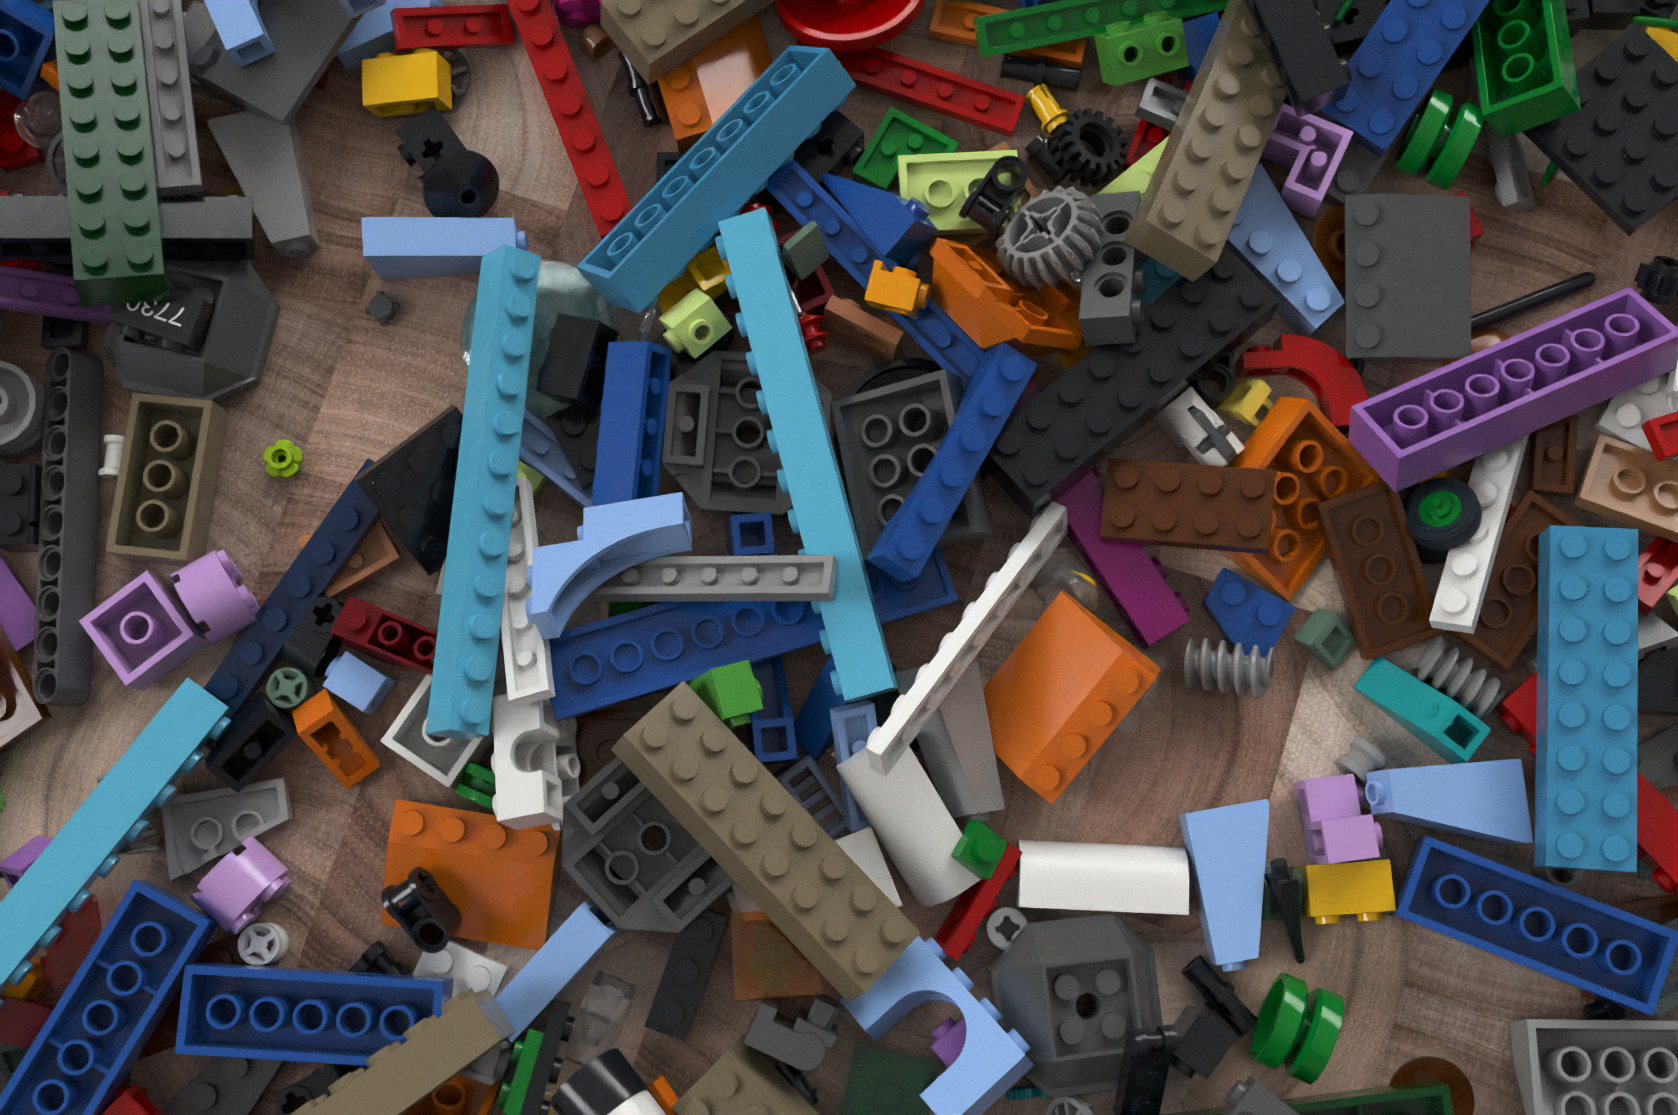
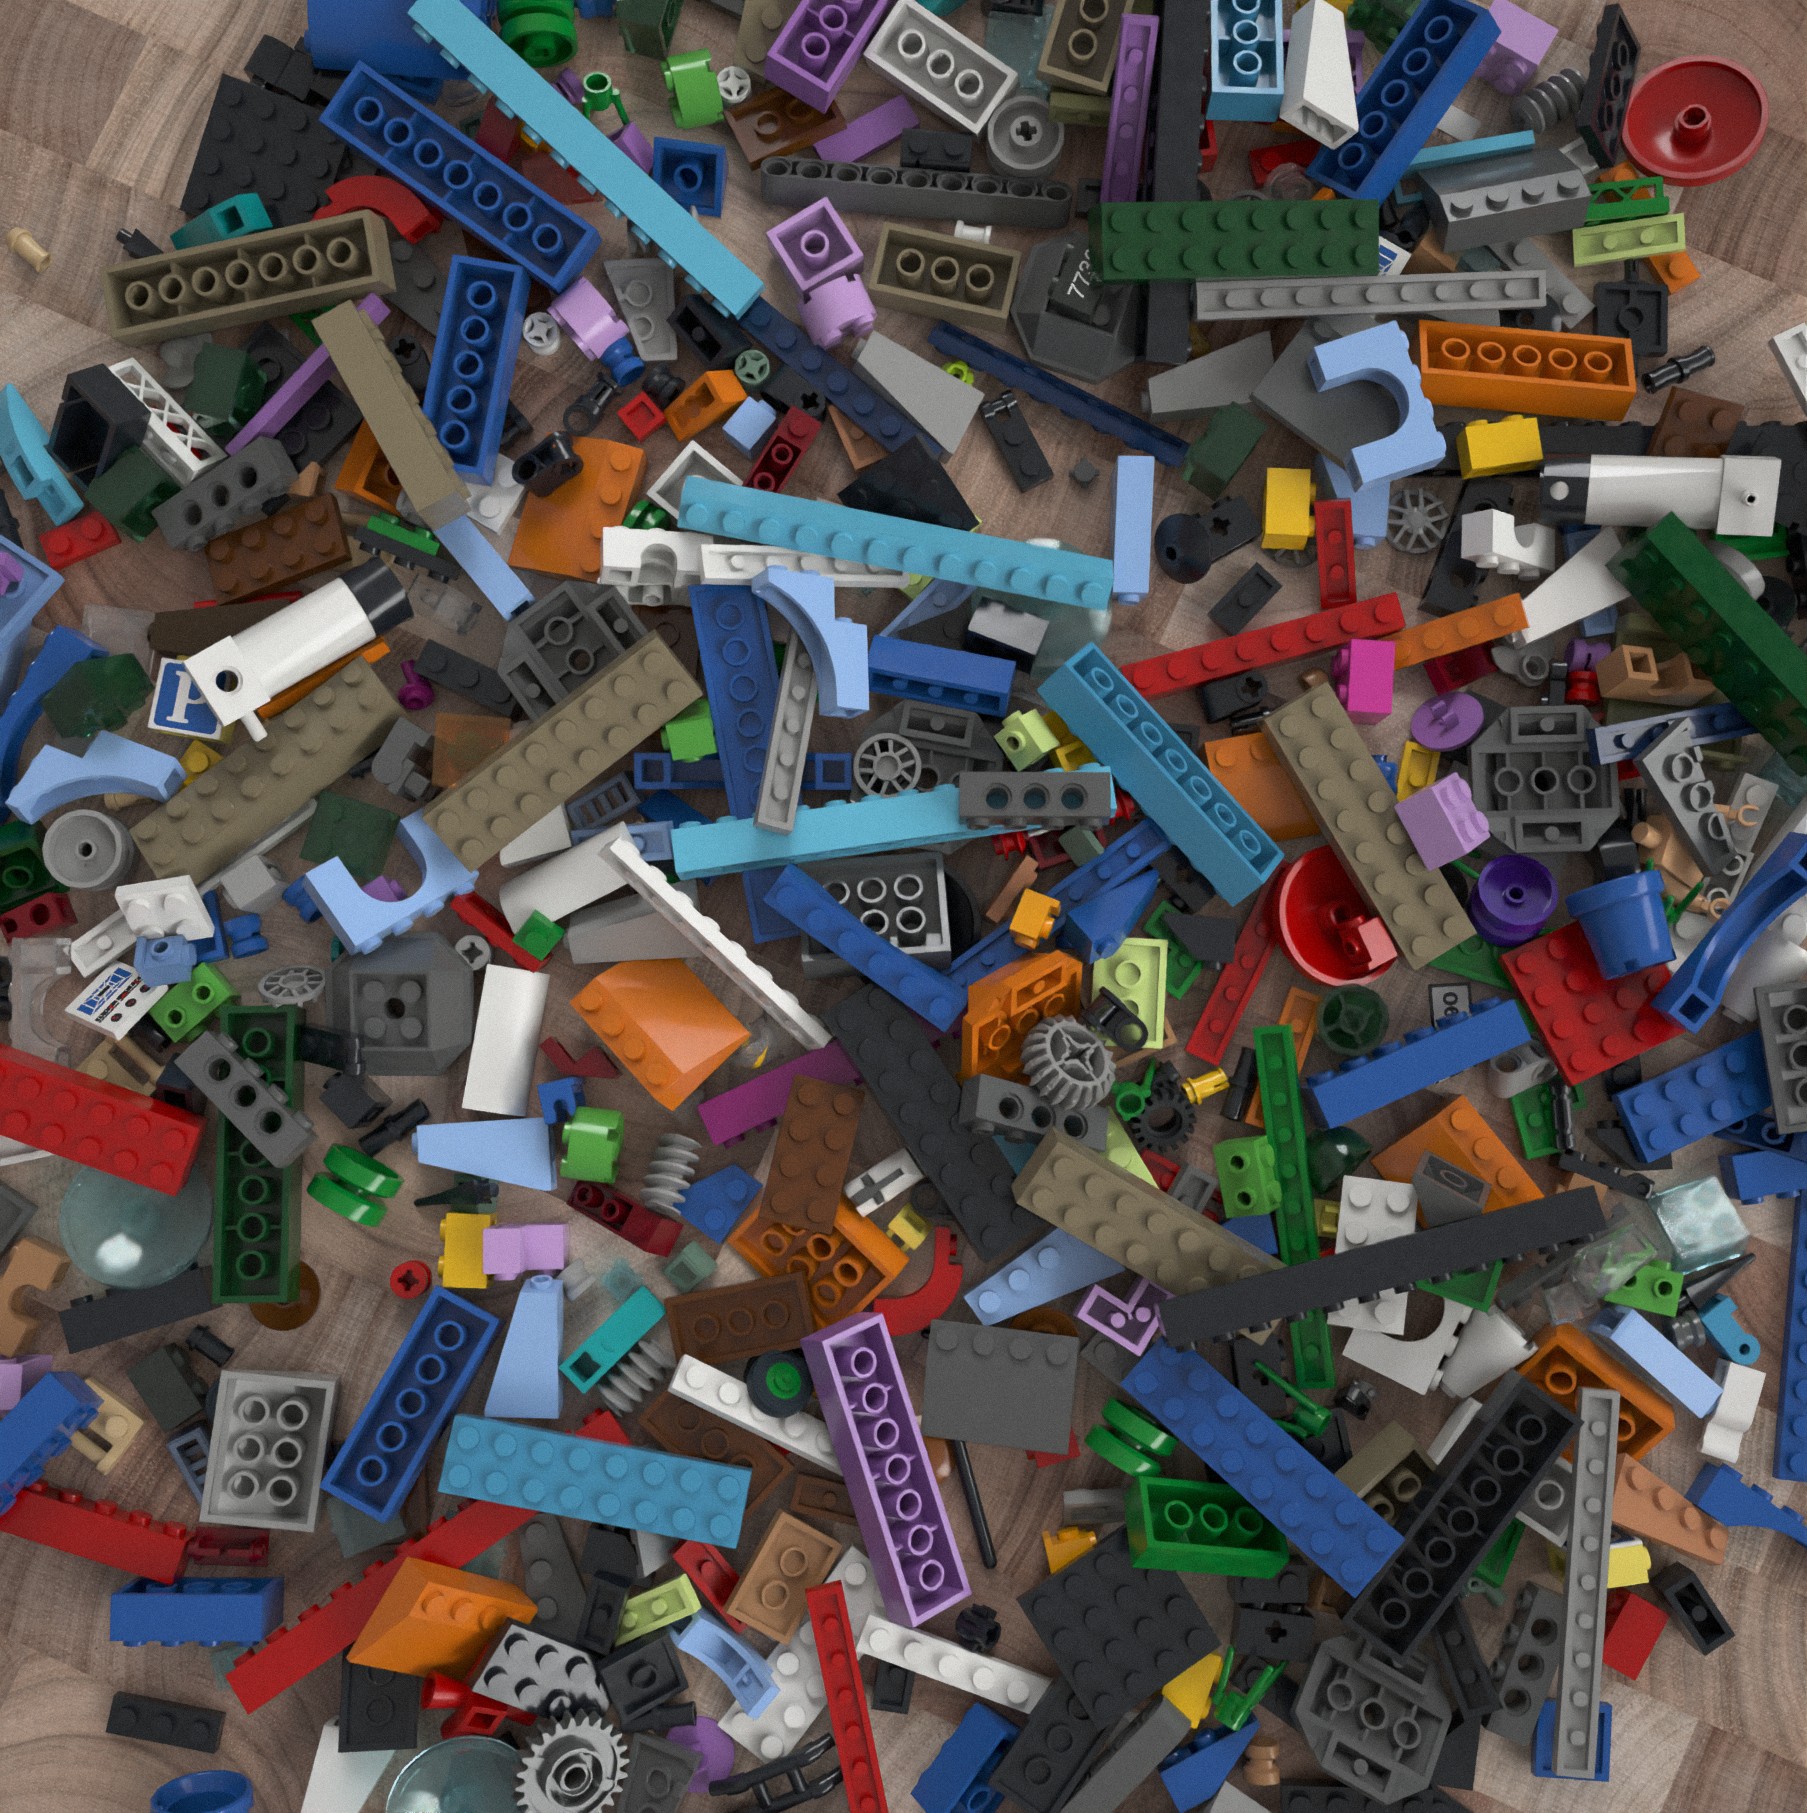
camera: 90 degrees right, 5 degrees up
(55, 785) = (691, 173): none -> blue slope
(287, 358) = (1048, 388): none -> dark blue plate
(292, 842) = (622, 362): none -> blue wheel
(301, 494) = (917, 390): none -> light grey slope
(316, 791) = (663, 385): none -> black wheel
(346, 874) = (591, 406): none -> black connector
(347, 154) = (1226, 447): none -> clear green brick
(352, 386) = (1016, 442): none -> black plate
(355, 812) = (641, 417): none -> red plate
(512, 121) = (1244, 600): none -> black plate
(621, 125) = (1225, 697): none -> black piece
(708, 1038) = (416, 689): none -> magenta plate
(740, 474) = (886, 765): none -> light grey wheel
(750, 230) = (1090, 787): none -> dark grey brick
(892, 119) = (1203, 938): none -> black slope
(1076, 171) = (1130, 1097): none -> green plant
(1117, 774) = (593, 1064): none -> dark red slope
(1155, 800) = (559, 1096): none -> blue hinge
(1209, 757) = (593, 1144): none -> bright green brick
(1280, 717) = (626, 1216): none -> dark red slope
(1364, 712) = (621, 1291): none -> clear light blue plate
(1380, 952) = (418, 1279): none -> red wheel
(1560, 198) = (1066, 1545): none -> light orange brick

